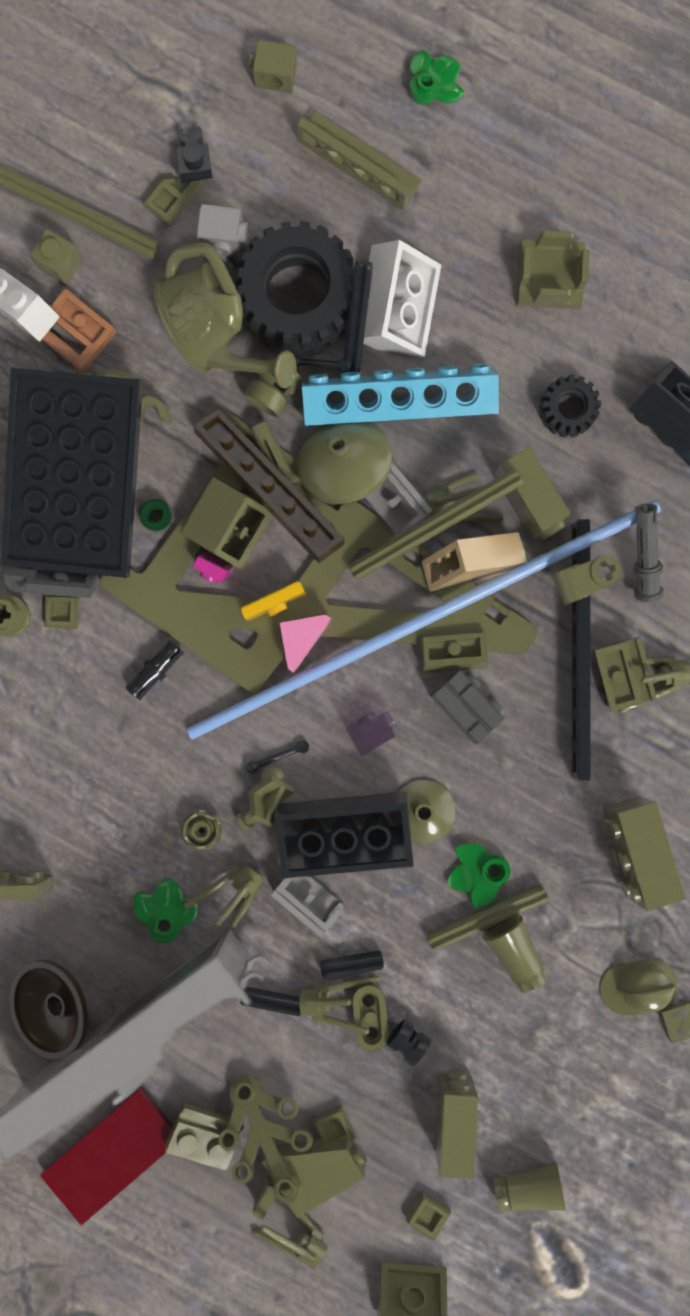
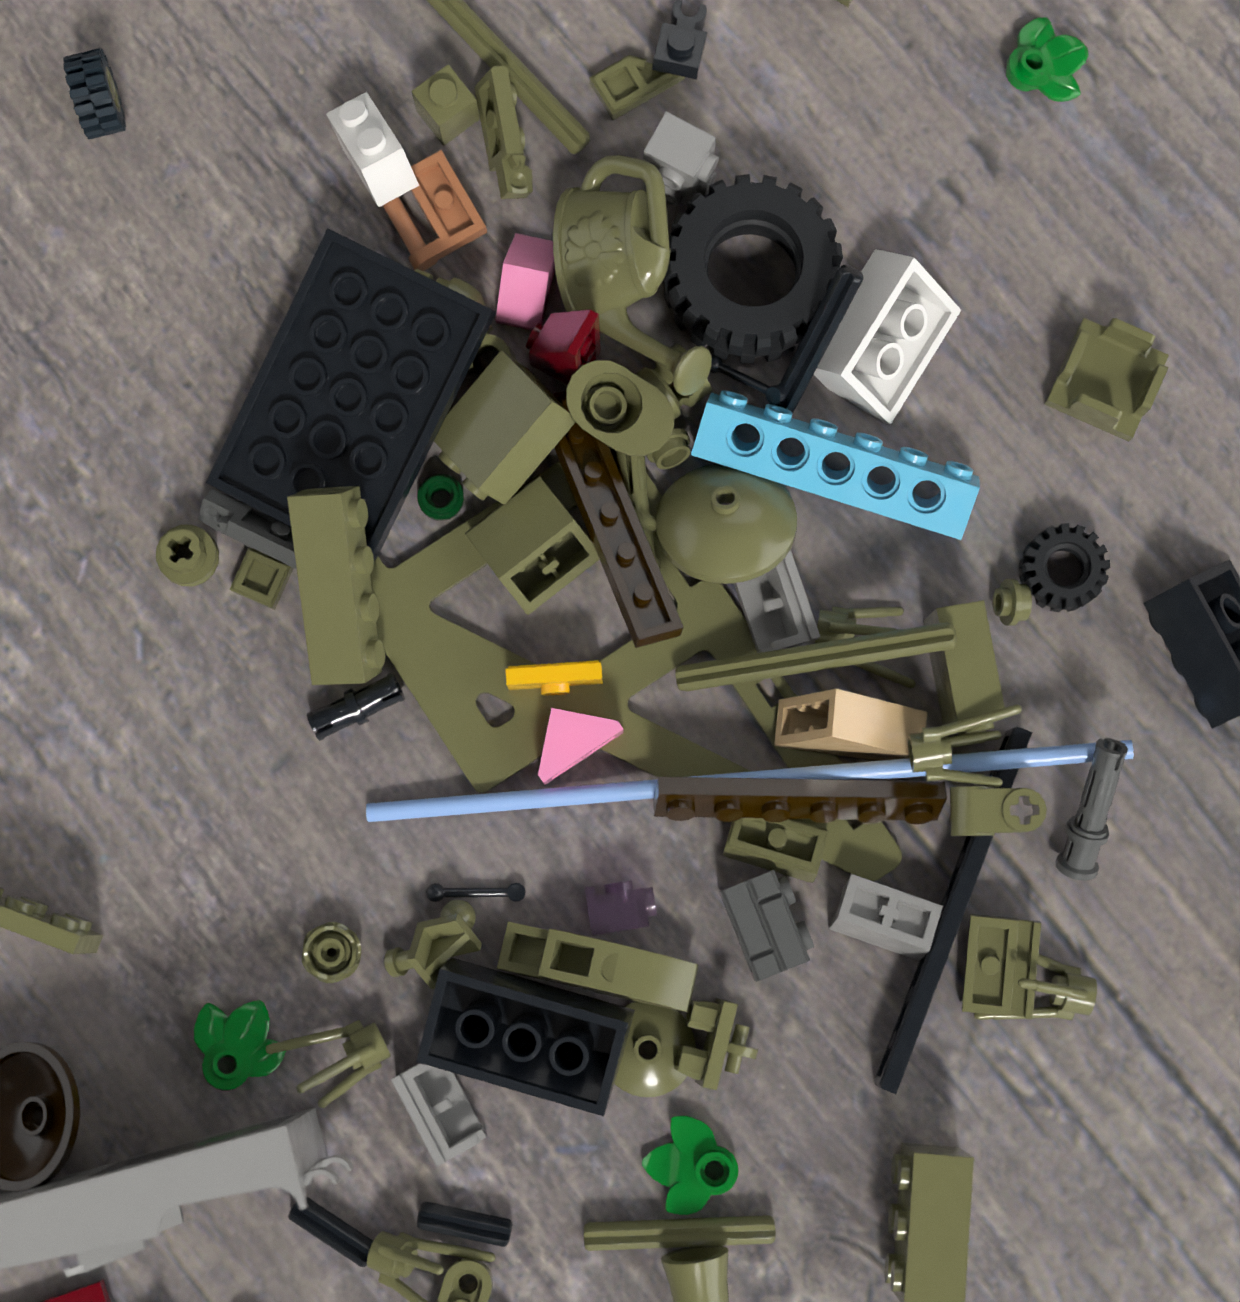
camera: 20 degrees right, 5 degrees down
(101, 263) = (501, 133): none -> olive hinge
(110, 597) = (336, 585): none -> olive brick
(154, 355) = (525, 282): none -> bright pink slope
(177, 455) = (502, 429): none -> olive brick
(197, 385) = (565, 343): none -> dark red slope
(213, 568) = (490, 598): dark pink plate -> none
(247, 412) = (619, 408): none -> olive piece
(288, 426) = (673, 452): none -> olive plate
(358, 159) = (902, 129): olive fence -> none
(372, 773) = (598, 966): none -> olive slope
(457, 619) = (799, 799): none -> dark brown plate
(464, 807) = (707, 1063): none -> olive hips
(532, 553) = (933, 747): none -> olive plant
(542, 672) = (886, 917): none -> light grey hinge
(545, 441) = (1012, 602): none -> olive plate

